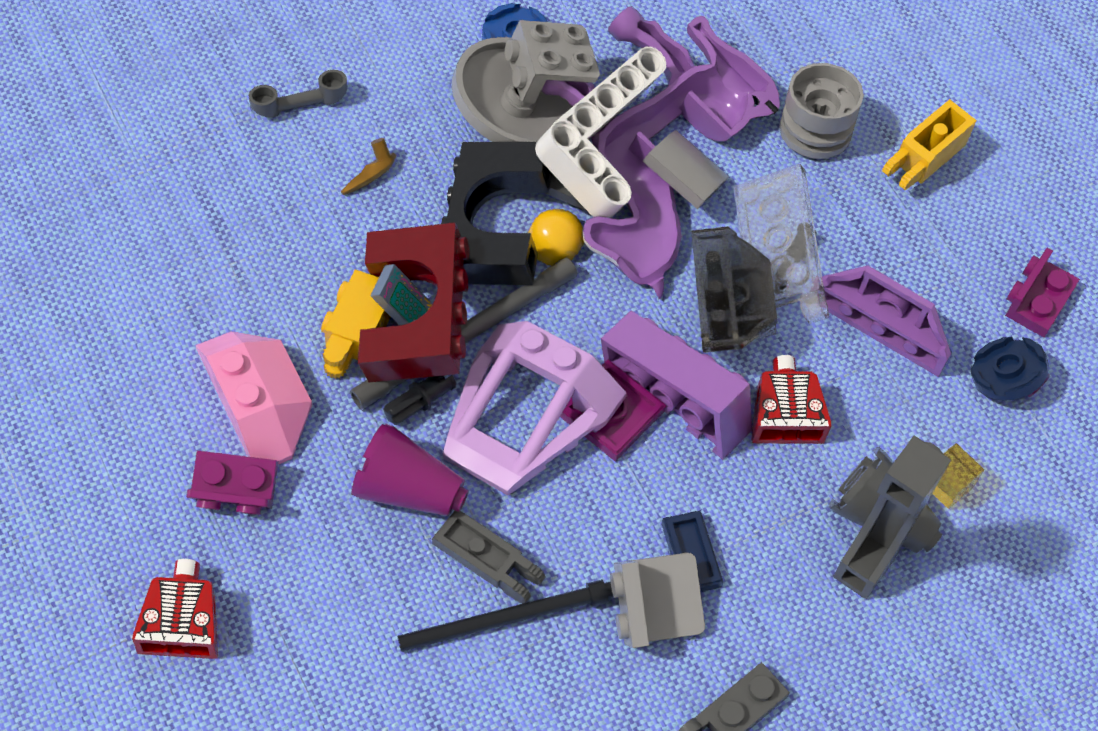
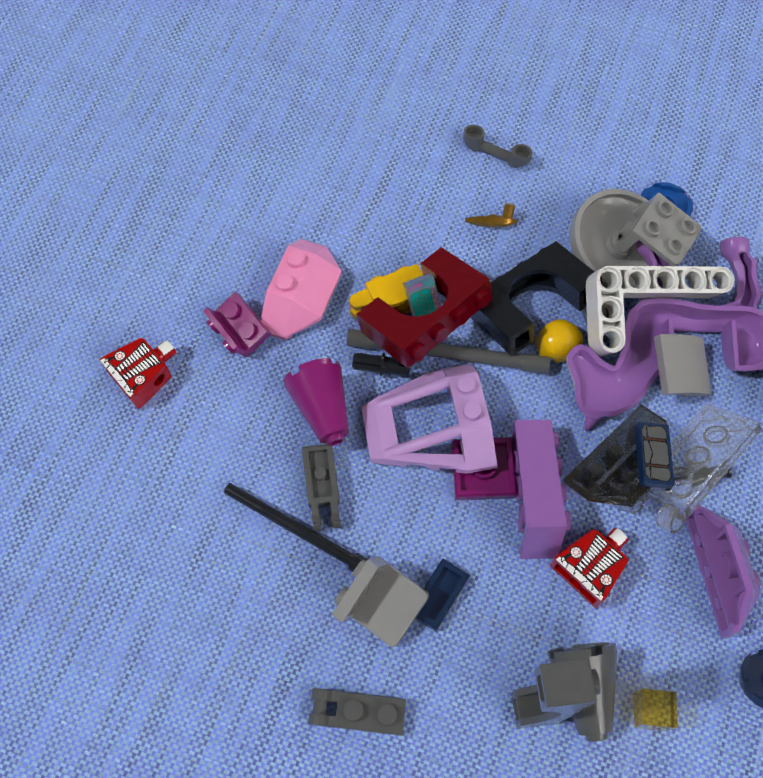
camera: 55 degrees right, 5 degrees up
(751, 263) = (654, 455): none -> tile

